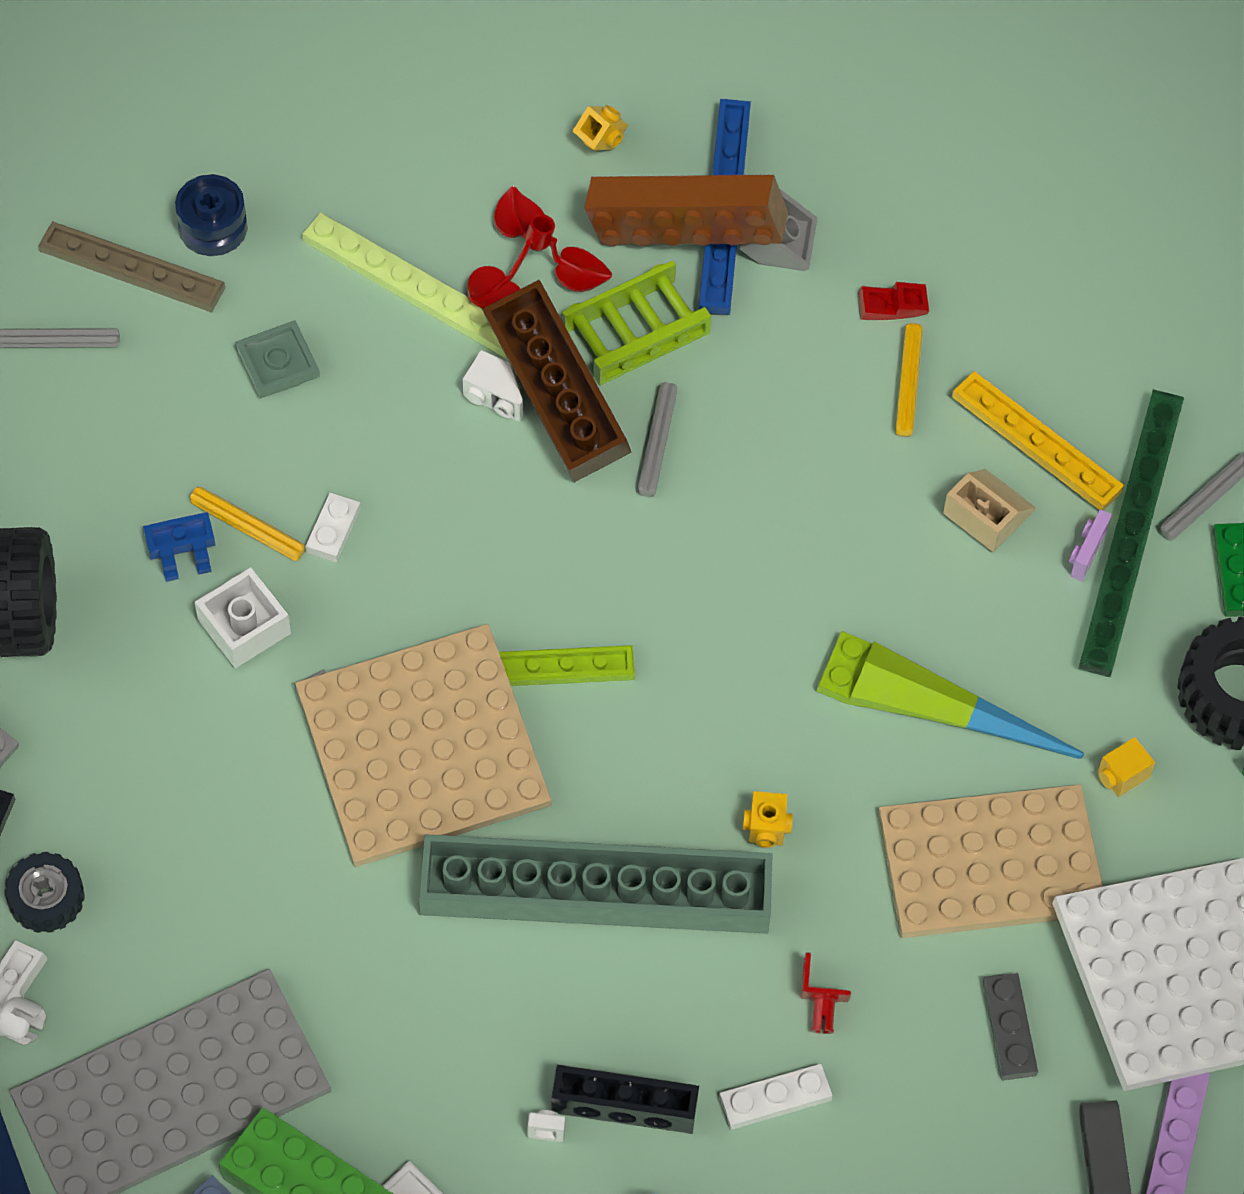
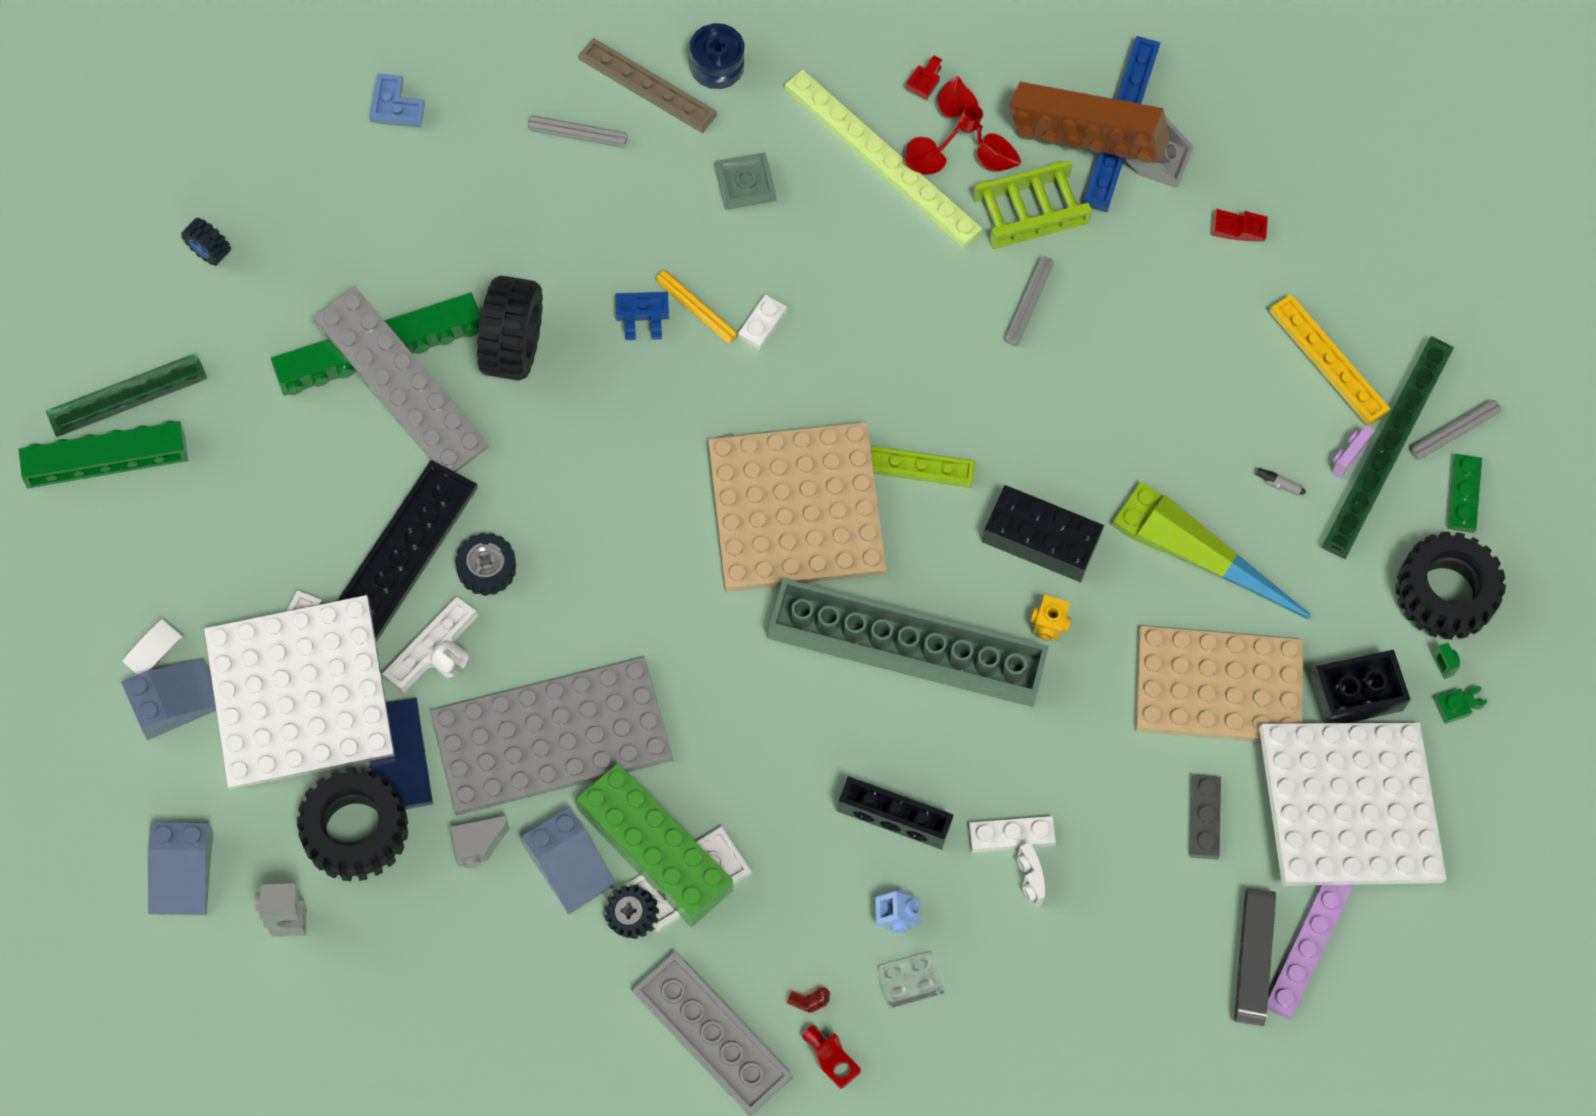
camera: 10 degrees right, 5 degrees up
(243, 617) = (678, 380): white brick -> none
(474, 197) = (925, 79): none -> red plate
(493, 385) = (909, 233): white slope -> none
(546, 1126) = (831, 821): white plate -> none
(557, 381) = (959, 240): reddish brown brick -> none
(601, 127) = (1036, 42): yellow brick -> none
(734, 717) = (1042, 533): none -> black brick
(816, 1150) = (1033, 883): none -> white slope
(823, 999) = (1064, 768): red bracket -> none
(909, 380) = (1238, 291): yellow axle -> none
(986, 508) = (1277, 406): tan slope -> none
(1010, 599) = (1278, 482): none -> light grey piece
(1126, 767) = (1341, 633): yellow brick -> none
(1163, 829) = (1360, 688): none -> black brick

